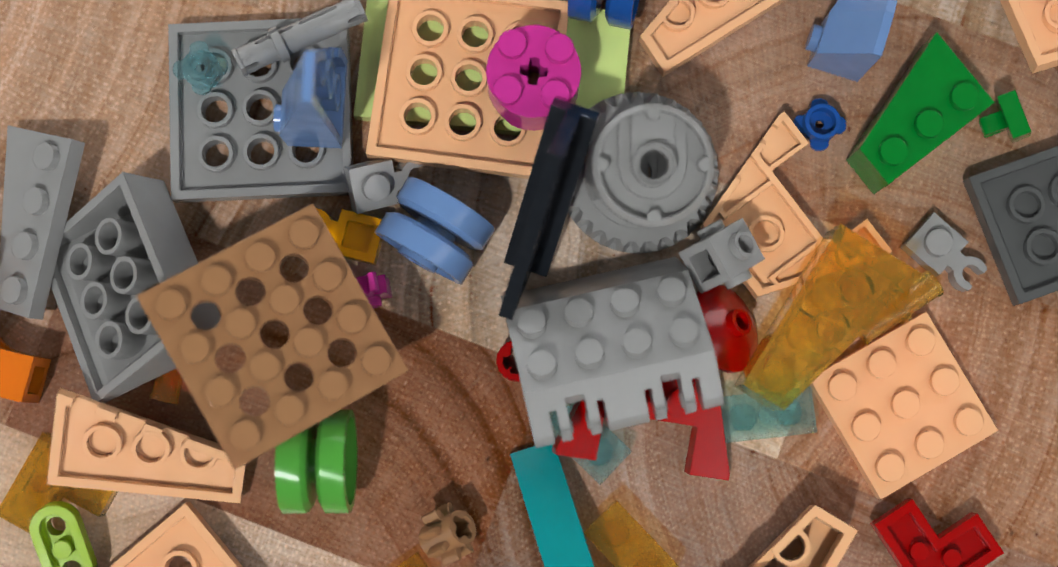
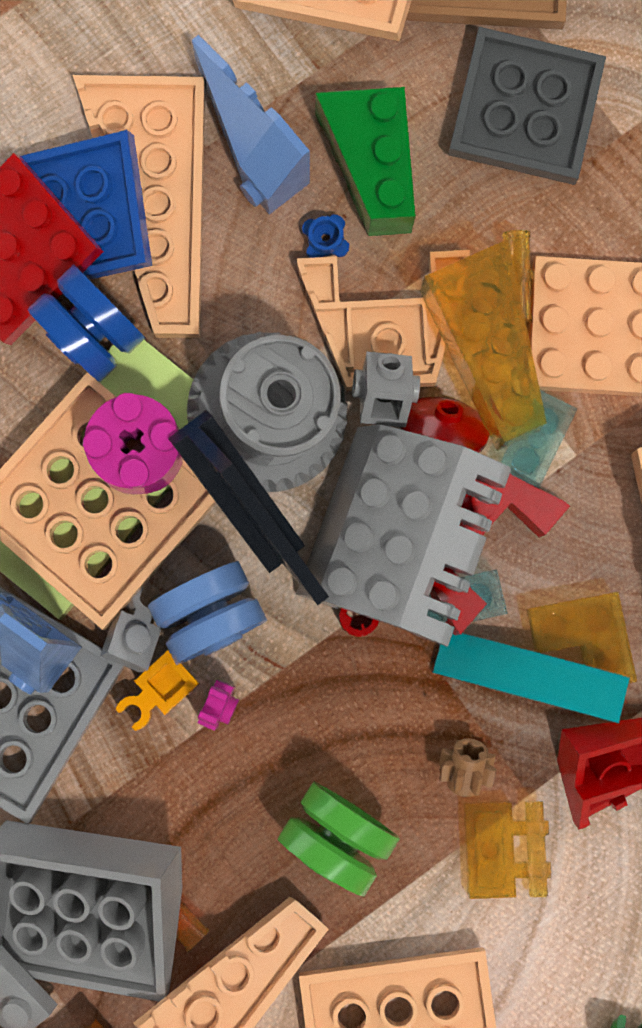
camera: 60 degrees left, 0 degrees up
(259, 259) = (135, 826): medium nougat piece -> none
(938, 249) = (490, 211): light grey plate -> none
(1009, 118) = (422, 83): green tile -> none

